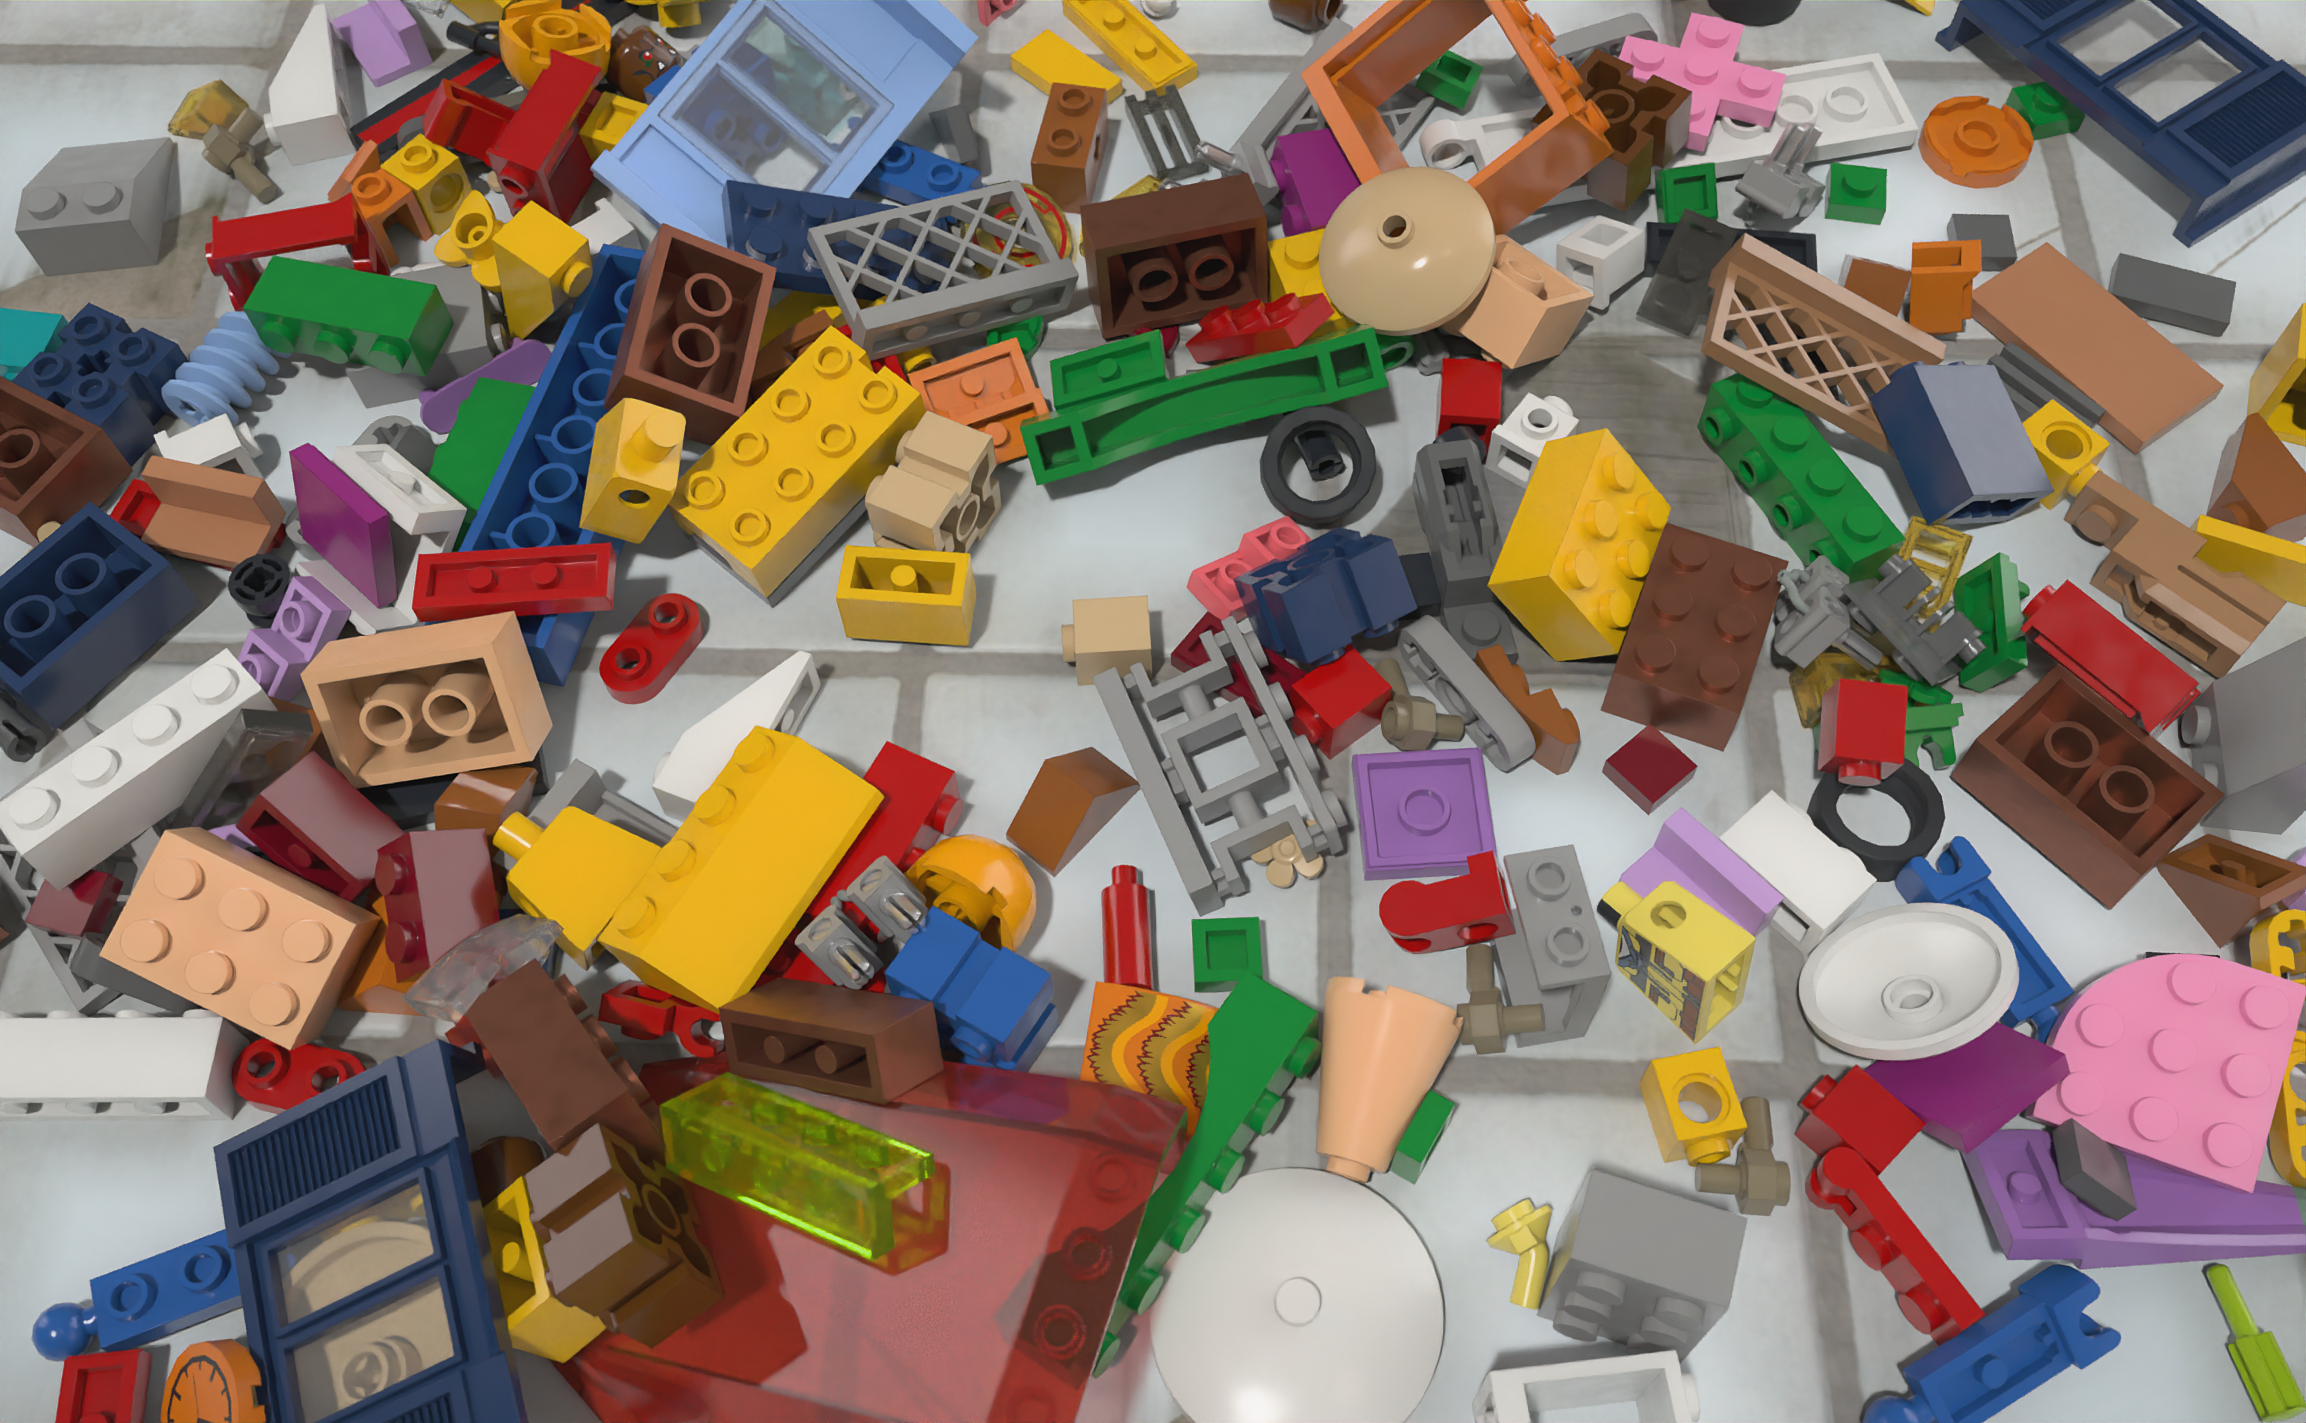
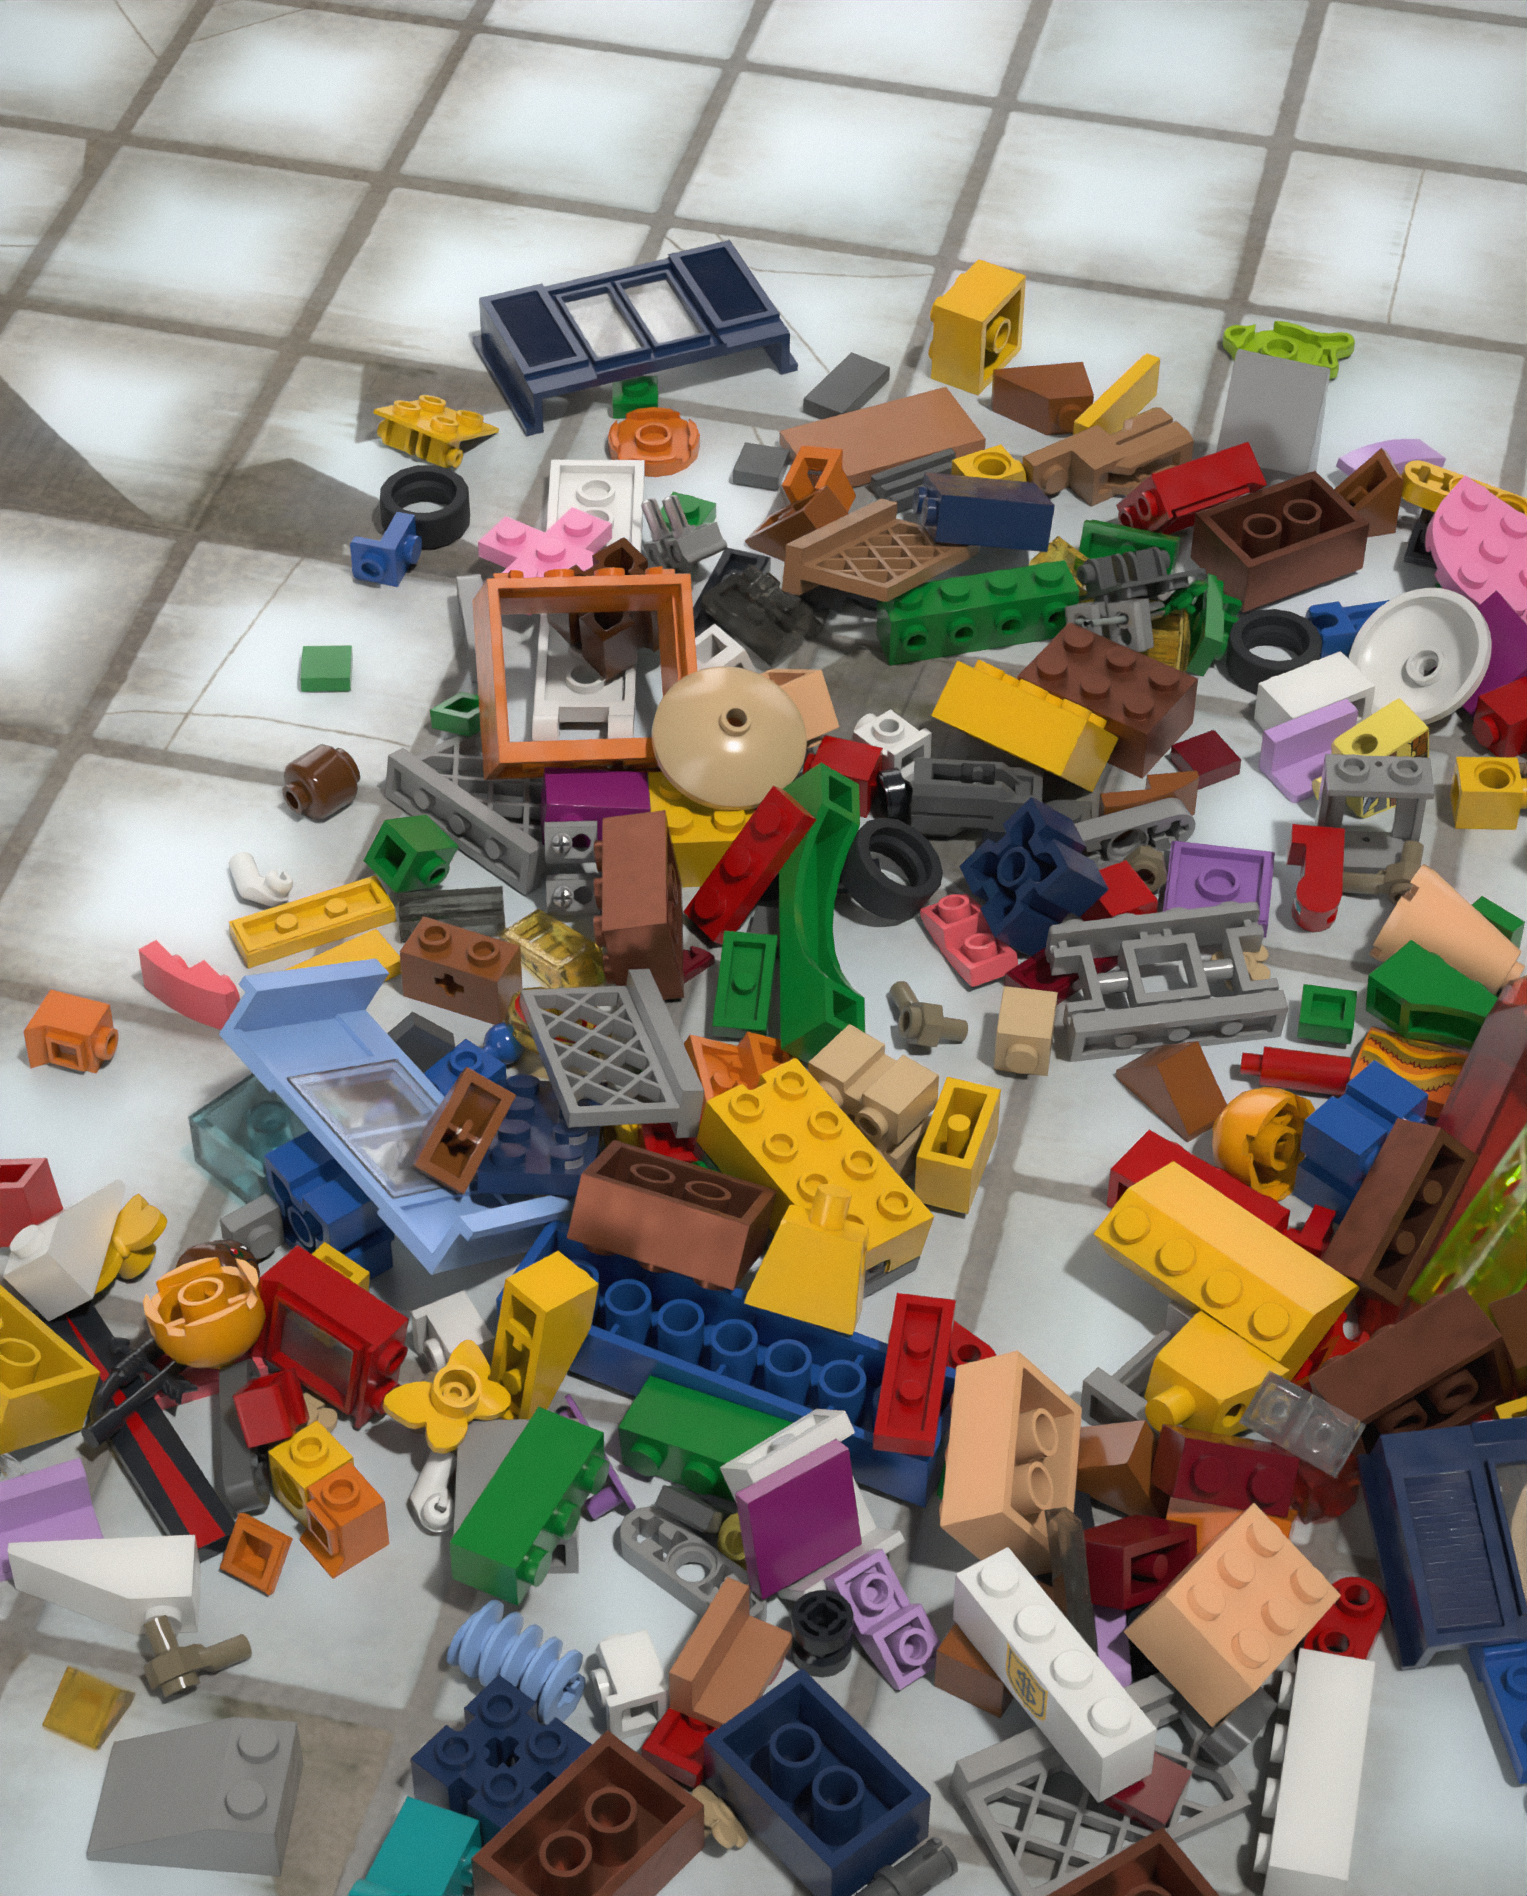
camera: 80 degrees left, 15 degrees down
(316, 233) = (411, 1573): red window -> none
(765, 152) = (462, 1130): none -> dark orange slope
(772, 702) = (1084, 1292): white slope -> none
(841, 946) = (1281, 1168): light grey piece -> none
(1101, 544) = (924, 1022): none -> dark tan piece
(1214, 73) = (411, 853): none -> green brick
(1862, 731) = (1233, 617): red brick -> none

